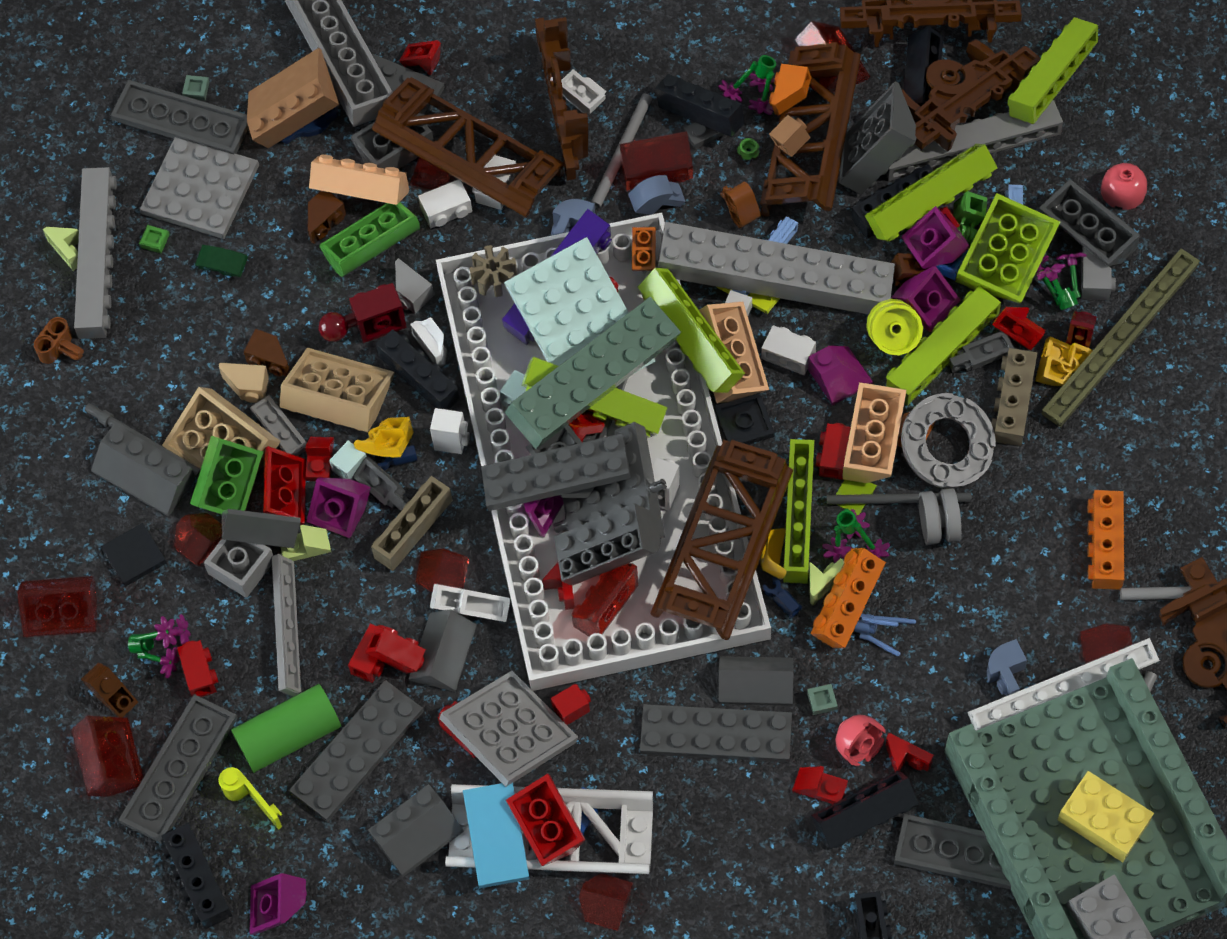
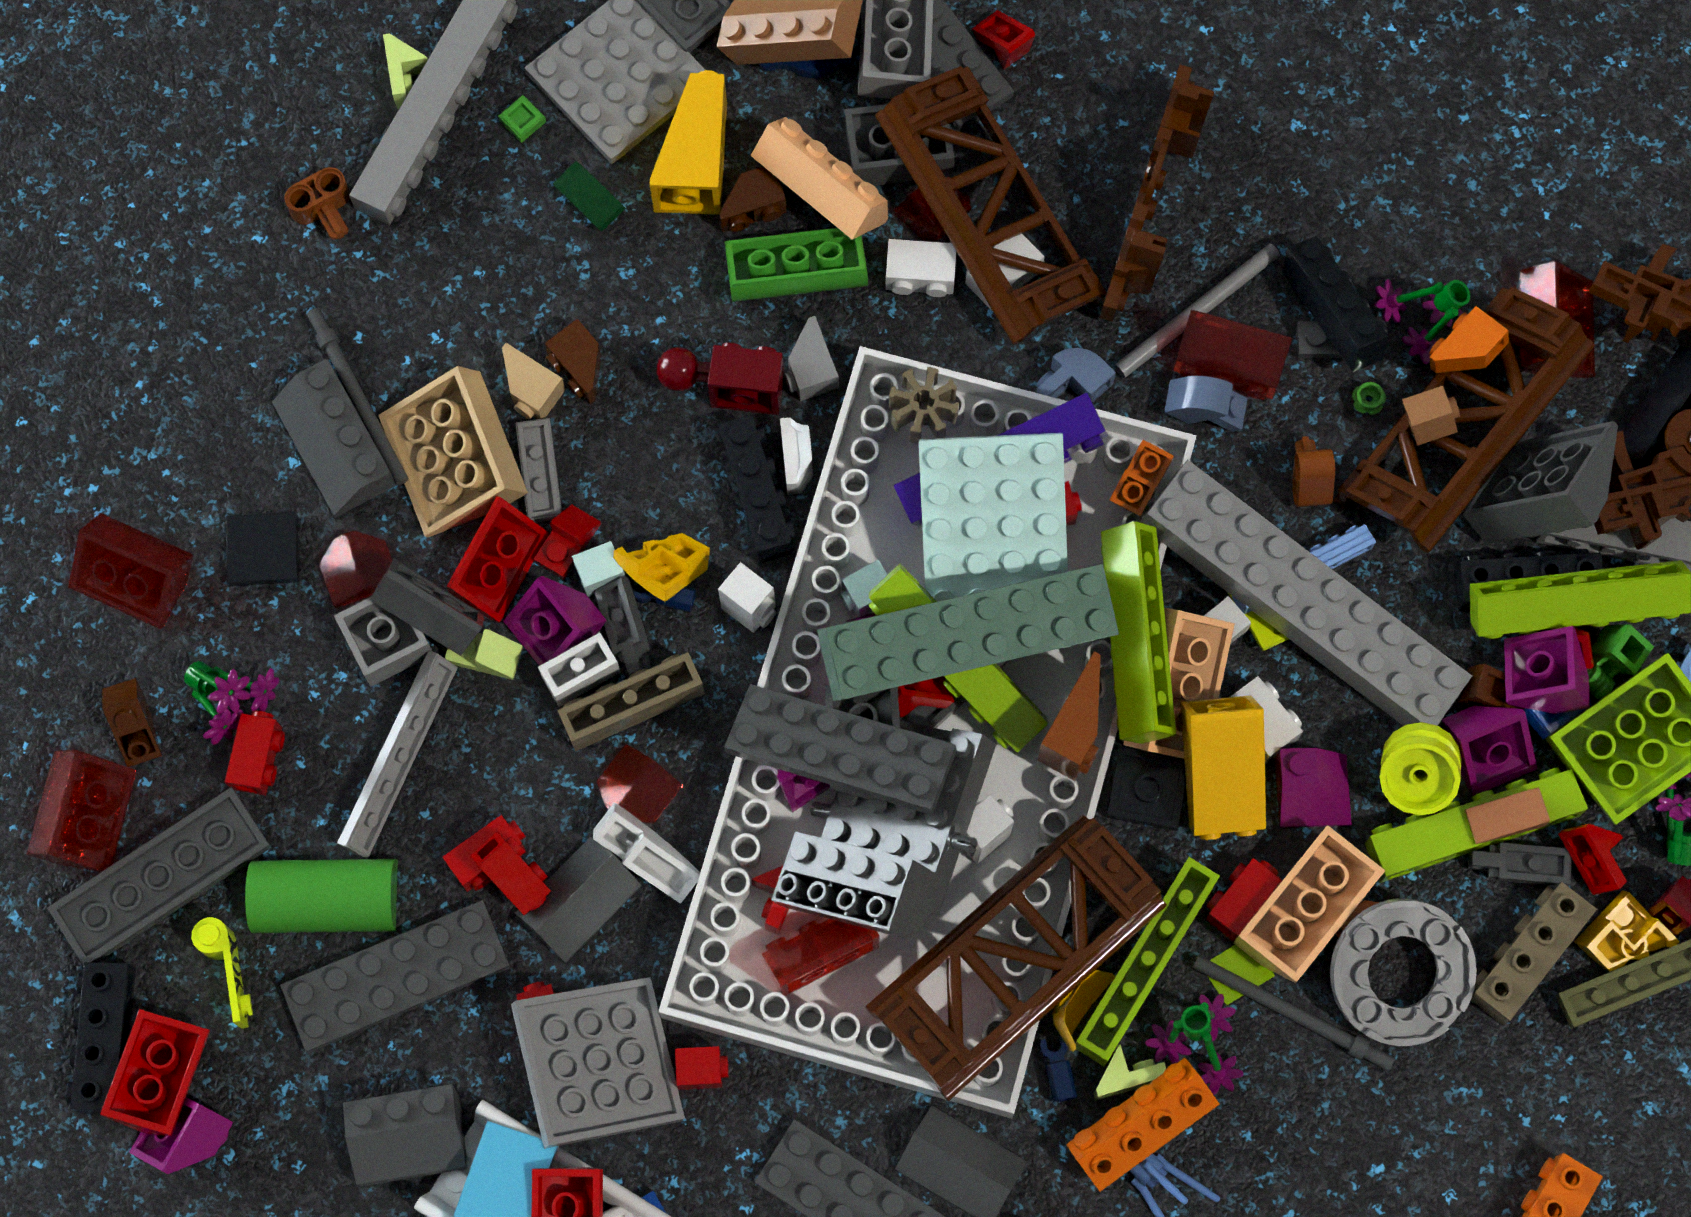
camera: 25 degrees right, 10 degrees up
(226, 476) = (427, 510): bright green slope -> none
(243, 875) = (154, 1073): none -> red slope
(276, 210) = (692, 156): none -> yellow slope
(335, 389) = (638, 456): tan slope -> none
(370, 521) = (579, 669): none -> white brick
(582, 92) = (1191, 198): white slope -> none
(687, 406) = (1072, 736): none -> dark orange slope
(782, 381) = (1224, 766): none -> yellow slope
(940, 515) = (1335, 1078): light grey wheel -> none
(958, 326) = (1508, 816): none -> nougat slope

